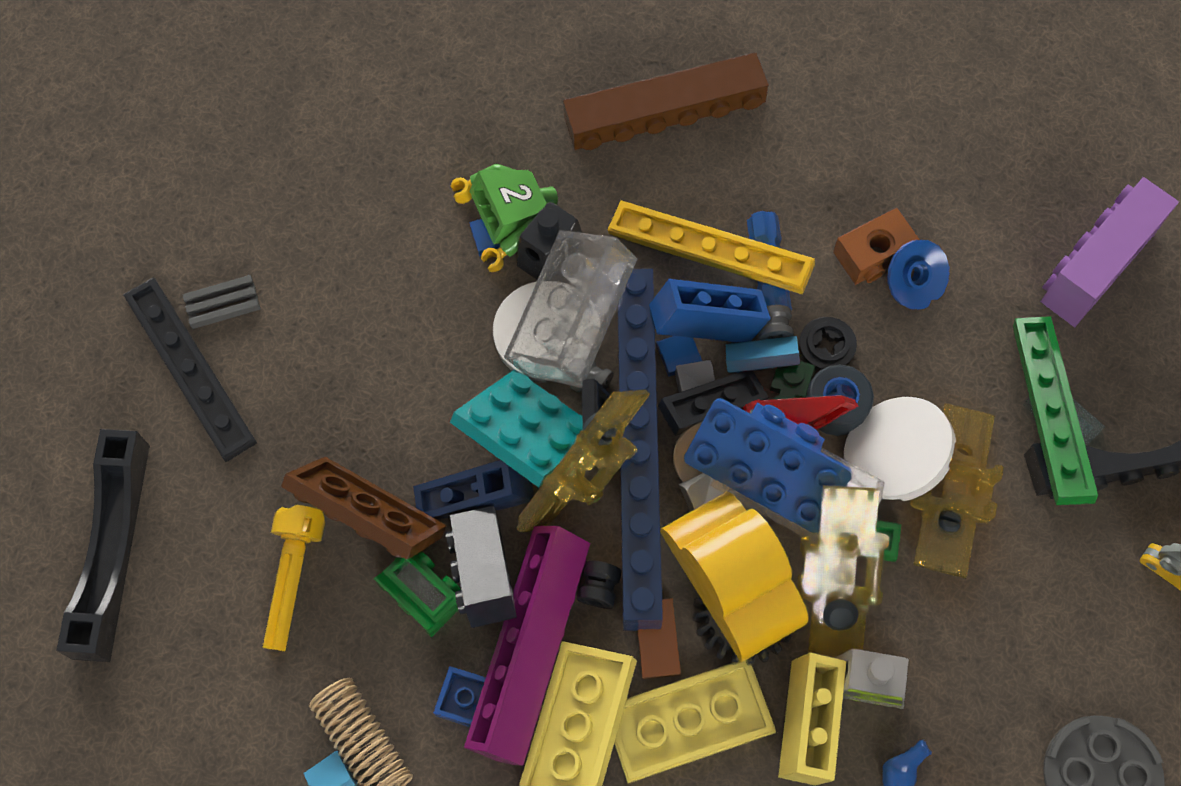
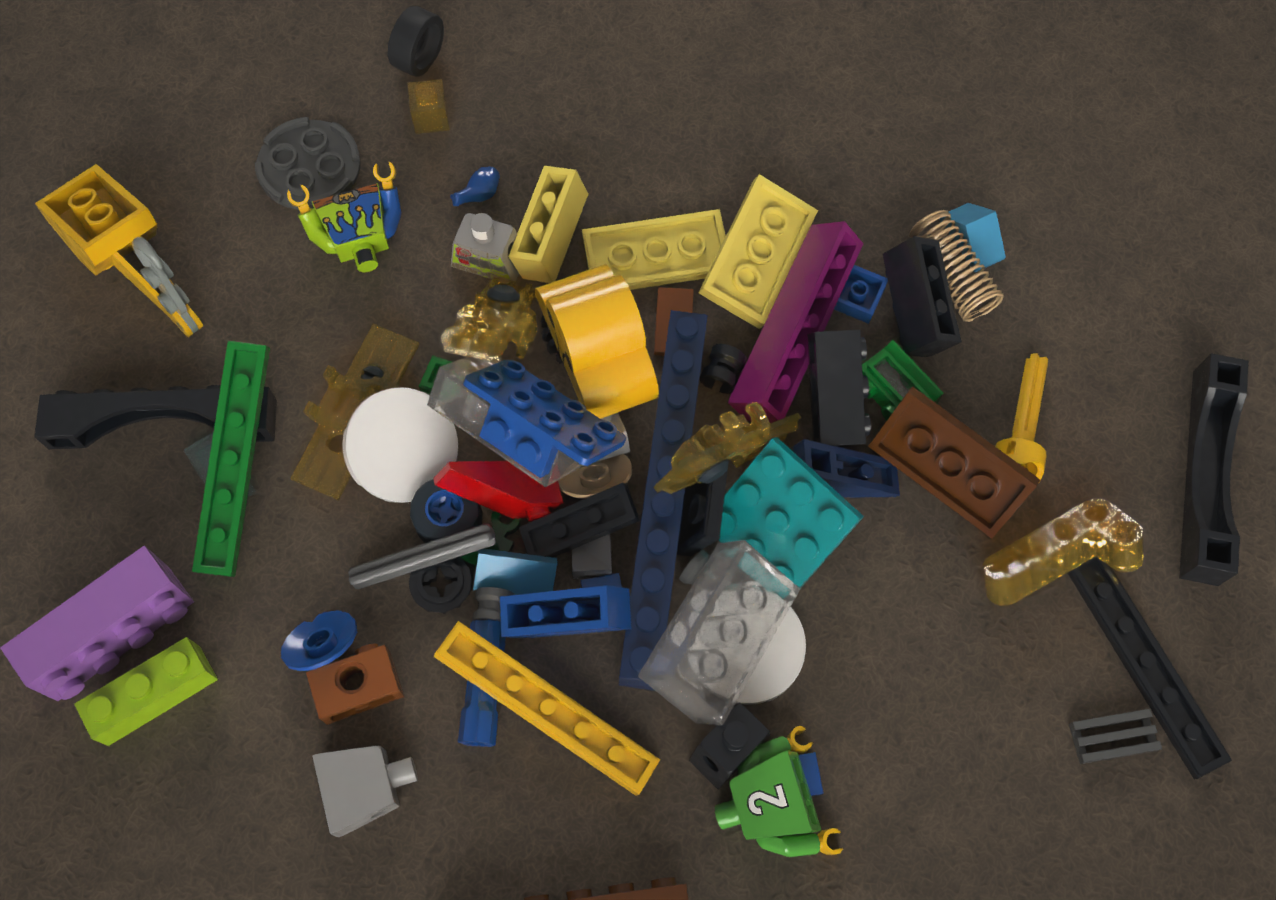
camera: 175 degrees left, 0 degrees up
(265, 435) = (1062, 545): none -> clear yellow beam
(398, 687) = (921, 297): none -> black brick
(849, 174) = (359, 785): none -> light grey torso
(849, 352) = (422, 556): none -> dark grey axle
(1028, 694) = (353, 222): none -> torso
(1047, 215) = (145, 692): none -> lime brick

